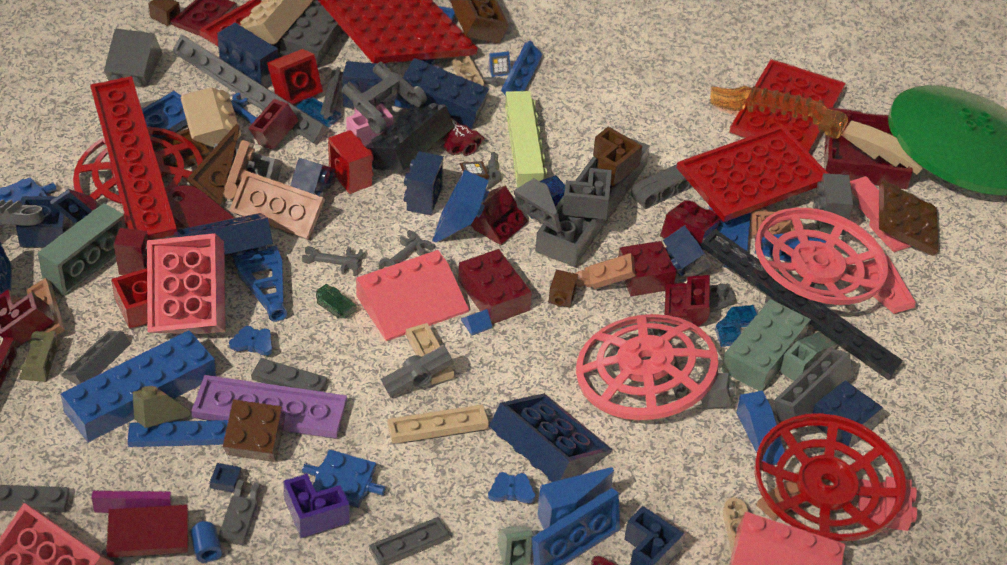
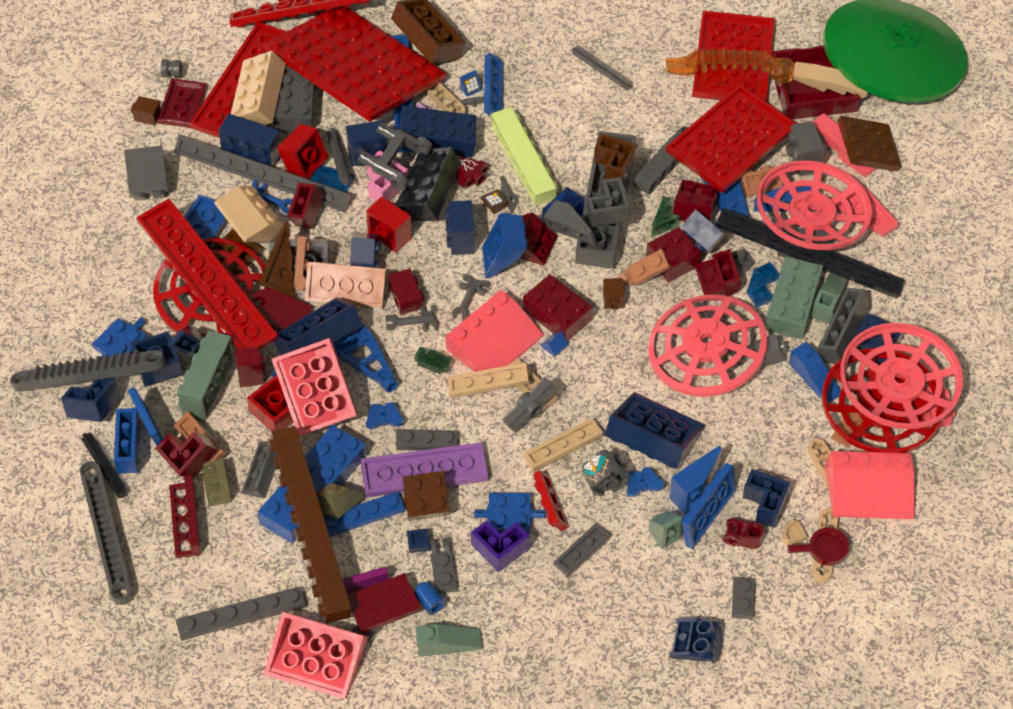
camera: 15 degrees left, 10 degrees up
(104, 424) = (310, 525): none -> reddish brown brick
(338, 228) = (405, 291): none -> dark red brick
(384, 335) = (488, 380): none -> tan plate
(395, 478) = (550, 501): none -> red plate
(470, 464) = (605, 472): none -> dark grey brick
(644, 84) = (602, 68): none -> dark grey axle
(650, 229) = (664, 220): none -> clear green slope
(860, 443) = (902, 368): none -> coral dish

